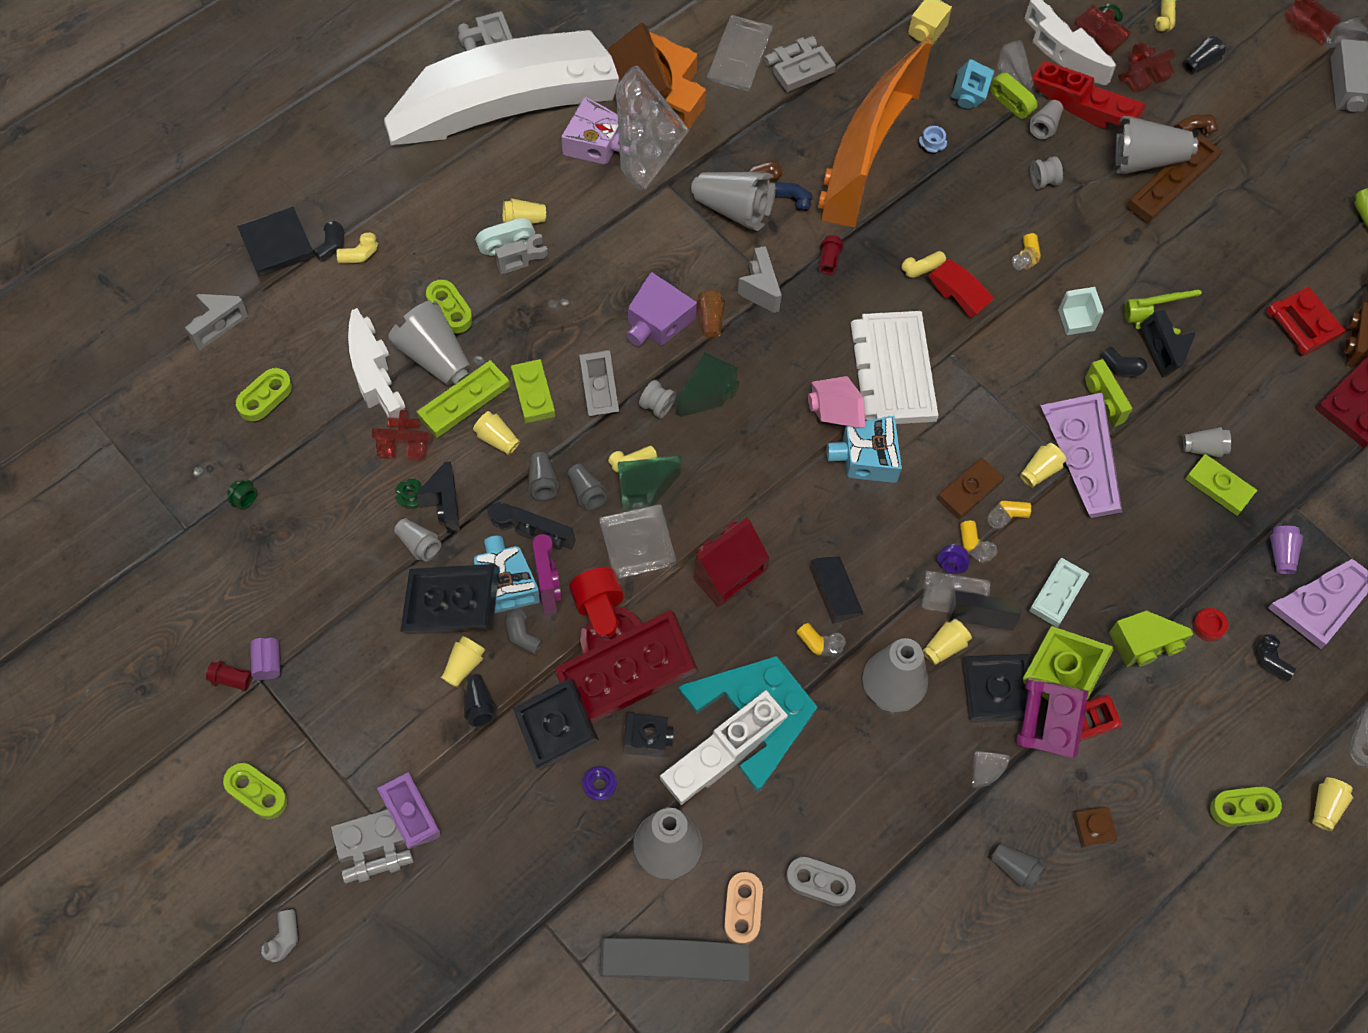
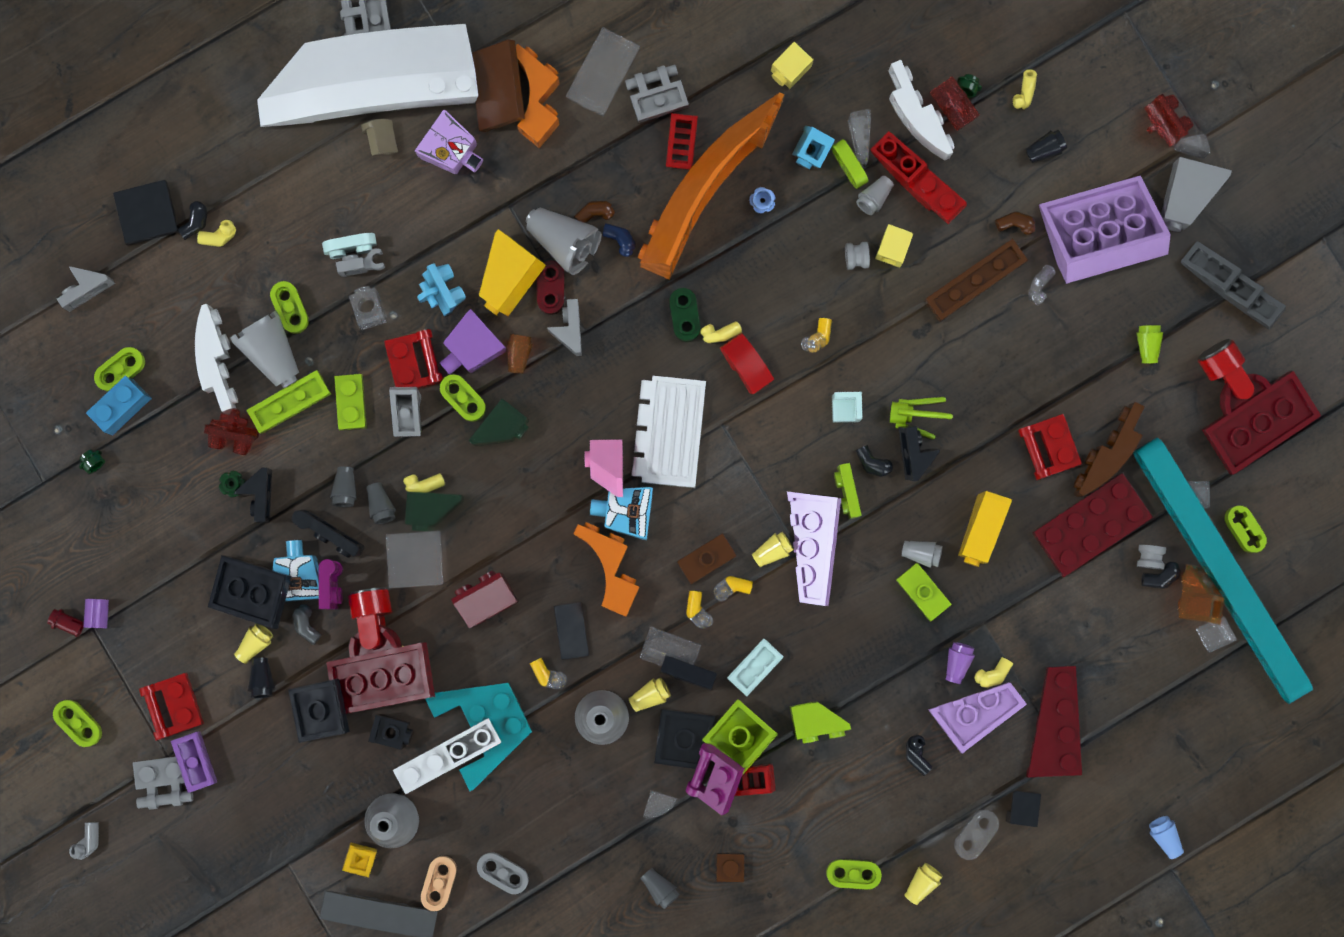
camera: 10 degrees right, 20 degrees up
(267, 428) = (118, 405): none -> dark azure brick
(381, 747) = (180, 704): none -> red plate
(419, 540) = (232, 529): light grey cone -> none
(496, 433) = (311, 440): light yellow cone -> none
(519, 209) = (369, 220): light yellow cone -> none
(521, 134) = (380, 136): none -> dark tan tile
(538, 303) = (375, 316): none -> clear brick
(584, 338) = (405, 363): none -> red plate
(595, 774) = (340, 769): dark purple plate -> none
(610, 264) = (436, 291): none -> medium azure hips
(637, 897) = (359, 859): none -> yellow tile
(646, 128) = (493, 154): clear plate -> none
(657, 399) = (454, 431): light grey wheel -> none
(660, 367) = (463, 398): none -> lime plate
(685, 236) = (508, 274): none -> yellow slope
(730, 247) = (551, 287): none -> dark red plate
(831, 248) = (638, 309): dark red pin -> none
(835, 79) = (671, 141): none -> red slope
(860, 494) = (611, 550): none -> orange arch
(879, 252) = (684, 314): none -> dark green plate
(953, 559) = (674, 623): dark purple plate -> none
(1081, 159) = (894, 245): none -> light yellow panel
(1144, 63) = (998, 151): clear red hips -> none
(1151, 145) = (958, 249): light grey cone -> none
(1210, 624) = (875, 715): red tile -> none
(1239, 171) = (1039, 281): none -> clear arm
(1268, 399) = (984, 527): none -> yellow slope
(1290, 117) = (1105, 229): none -> lavender slope
(1331, 558) = (995, 676): none -> light yellow arm

